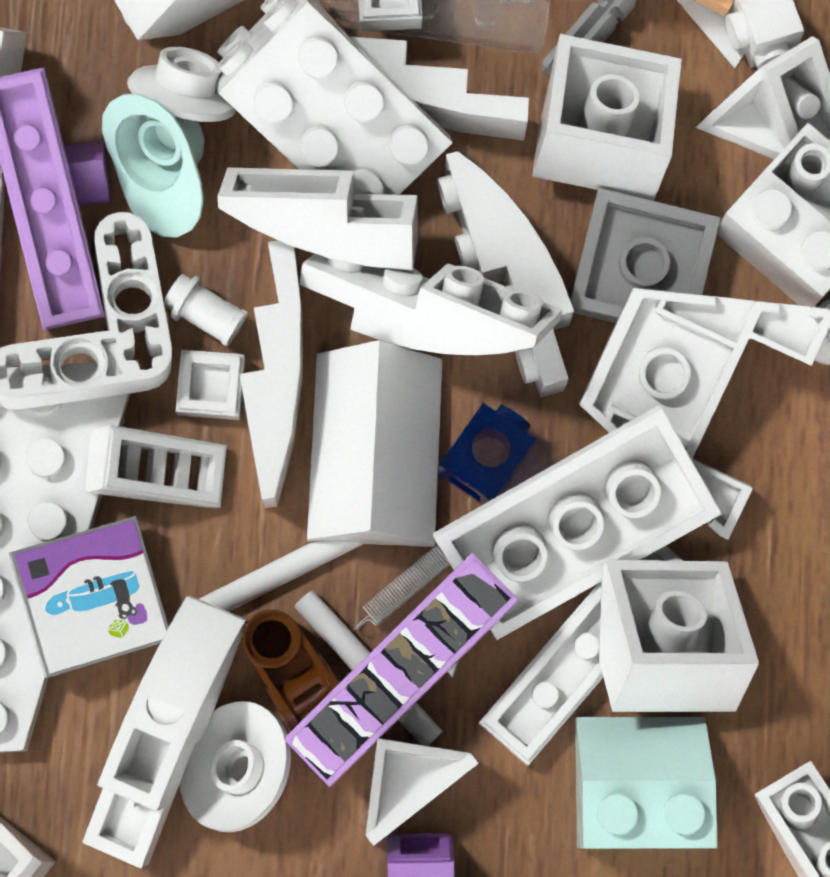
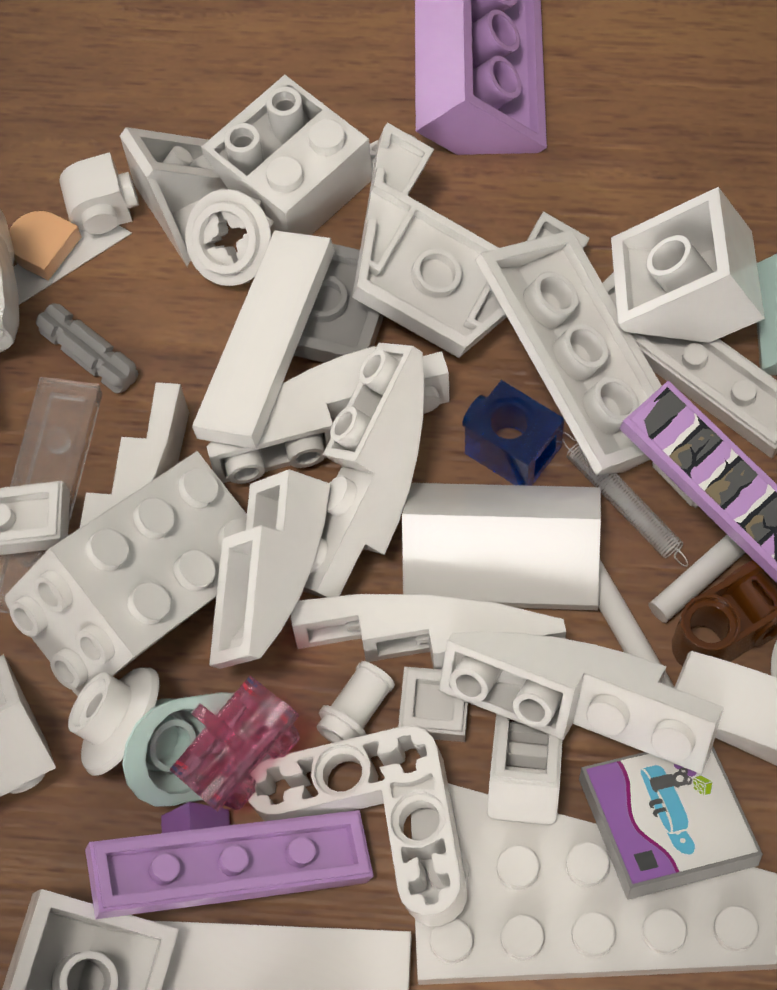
camera: 80 degrees left, 15 degrees down
(151, 194) = (234, 743): none -> clear pink hips
(214, 490) = (570, 682): none -> white slope
(580, 201) = (263, 340): none -> white tile
(608, 117) = (173, 317): white slope -> none
(692, 158) = (209, 223): none -> white gear

